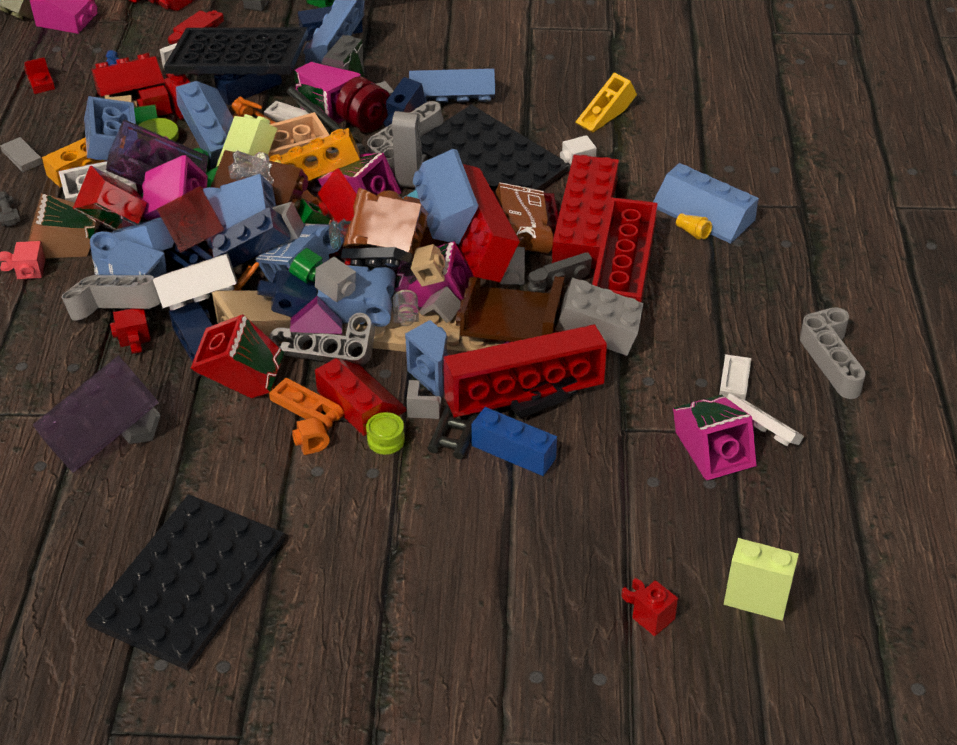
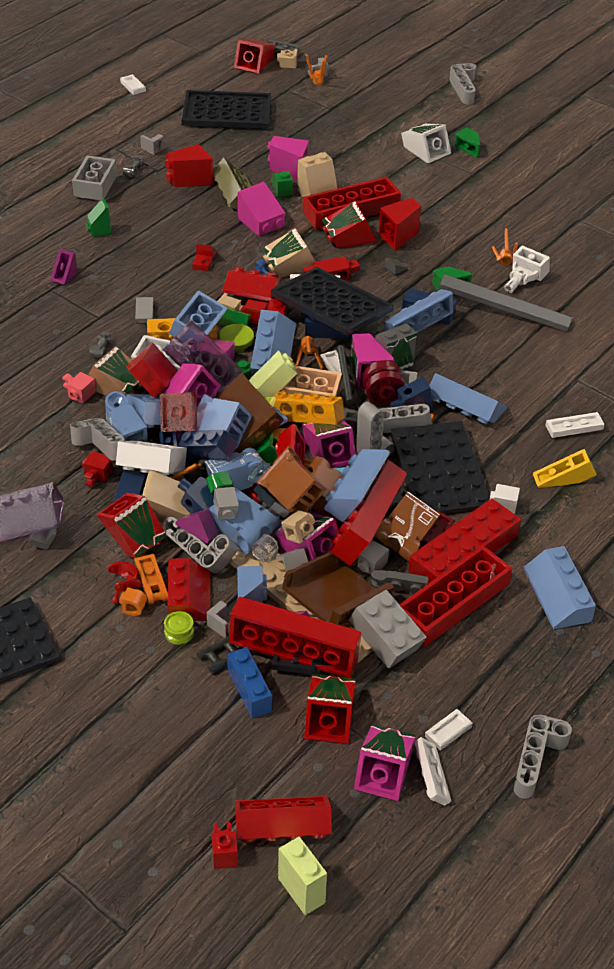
camera: 35 degrees right, 0 degrees up
(137, 31) = (288, 255): none -> tan slope
(248, 165) = (239, 393): clear hips -> none
(277, 410) = (128, 571): none -> red helmet
(291, 219) = (240, 445): light grey panel -> none
(571, 63) = (574, 424): none -> white plate
(616, 418) = (329, 708): none -> red slope
(677, 542) = (283, 818): none -> red slope
(696, 226) = (535, 601): yellow cone -> none

